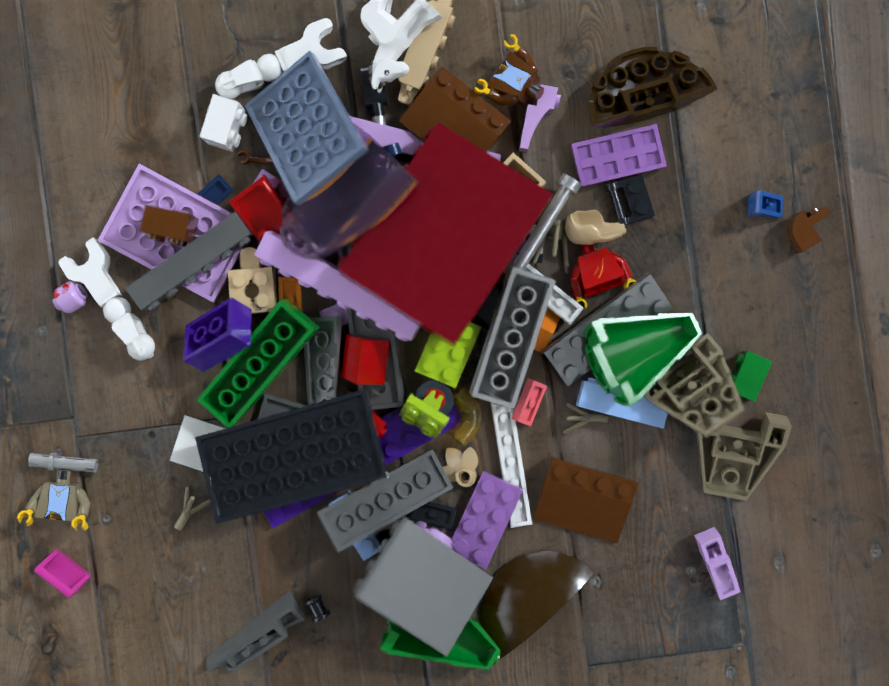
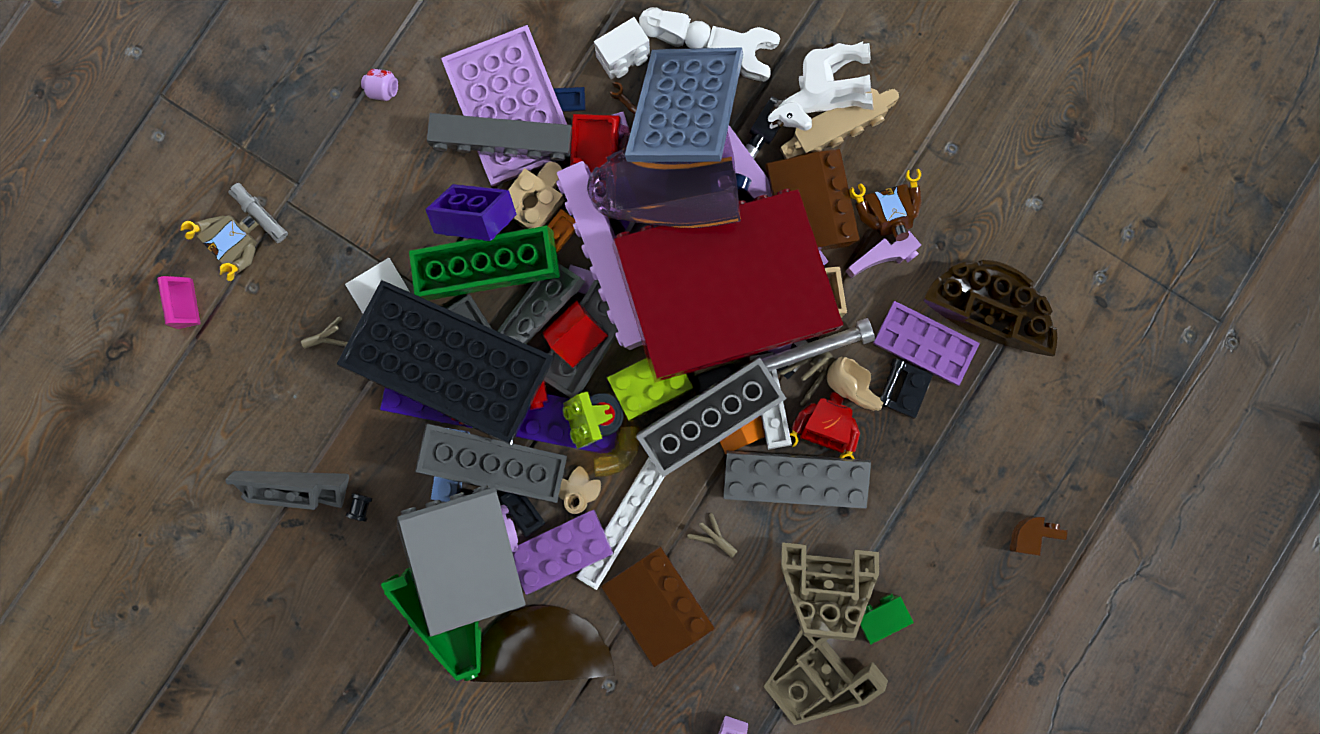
camera: 40 degrees right, 5 degrees down
(117, 310) = (411, 107): white piece -> none
(168, 224) = (509, 91): reddish brown piece -> none
(529, 402) = (680, 485): coral plate -> none
(595, 398) = (755, 550): light blue brick -> none
(637, 351) = (806, 516): green cone -> none
(765, 205) = (1016, 487): blue slope -> none

